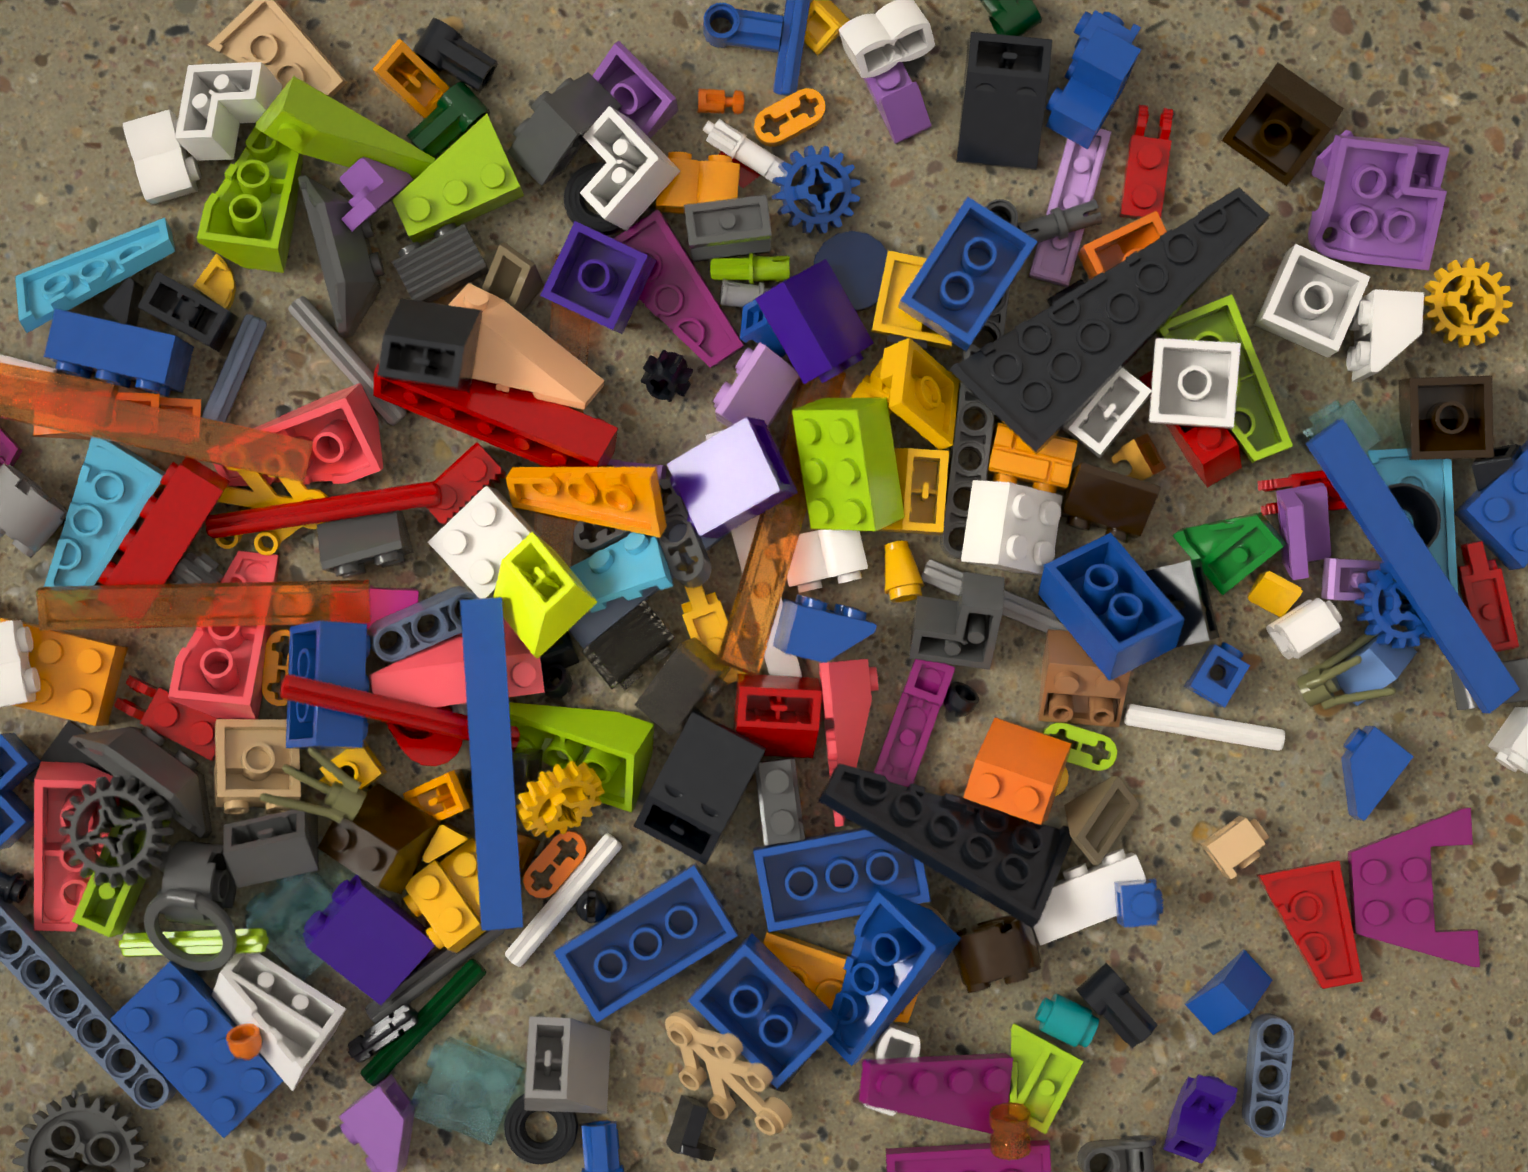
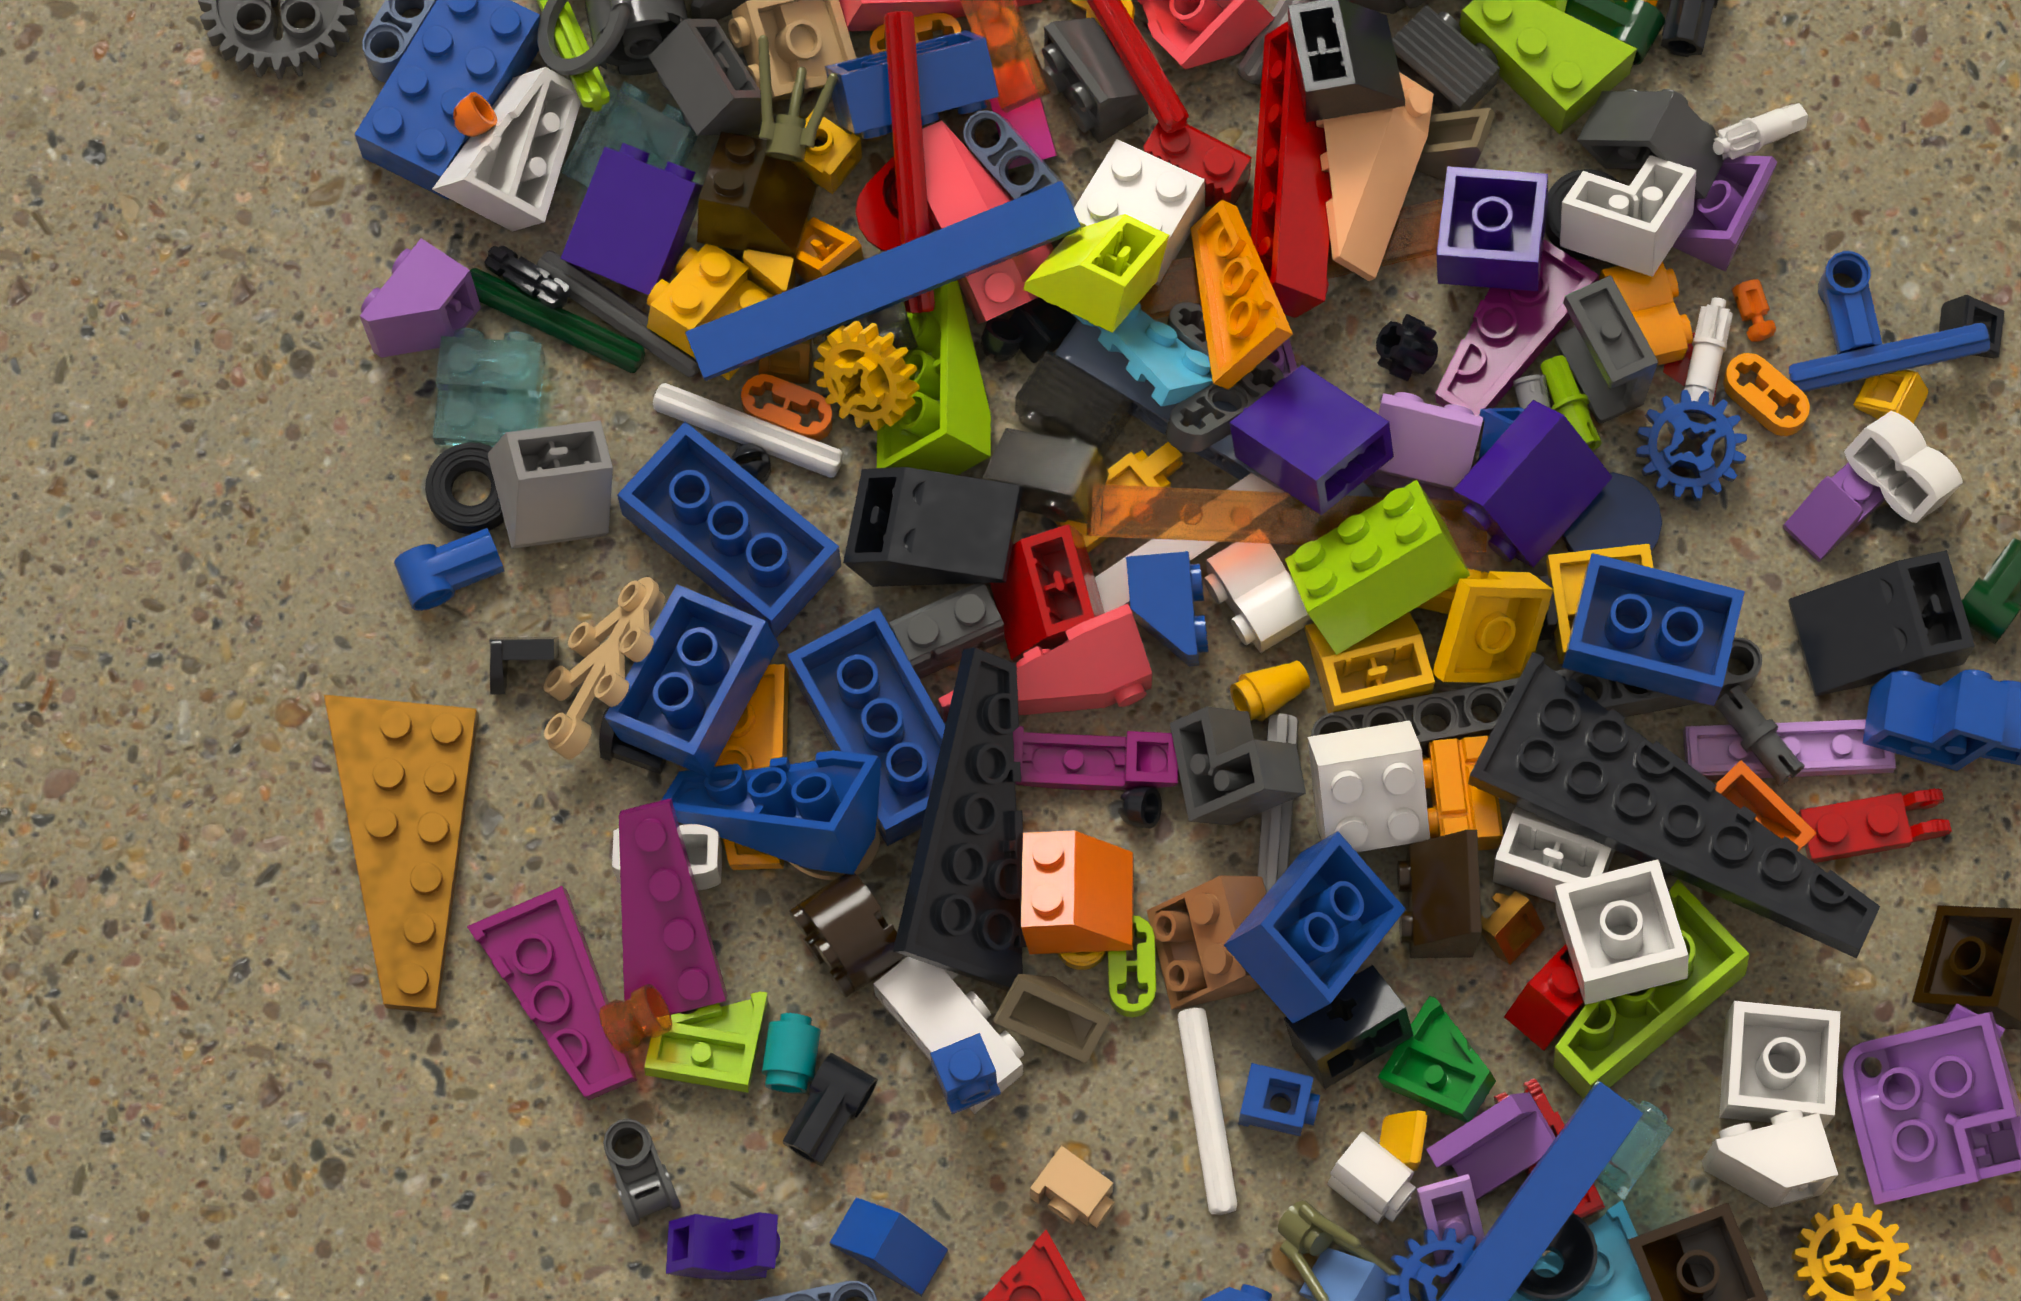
camera: 70 degrees right, 15 degrees down
(583, 50) = (1753, 133): none -> white piece

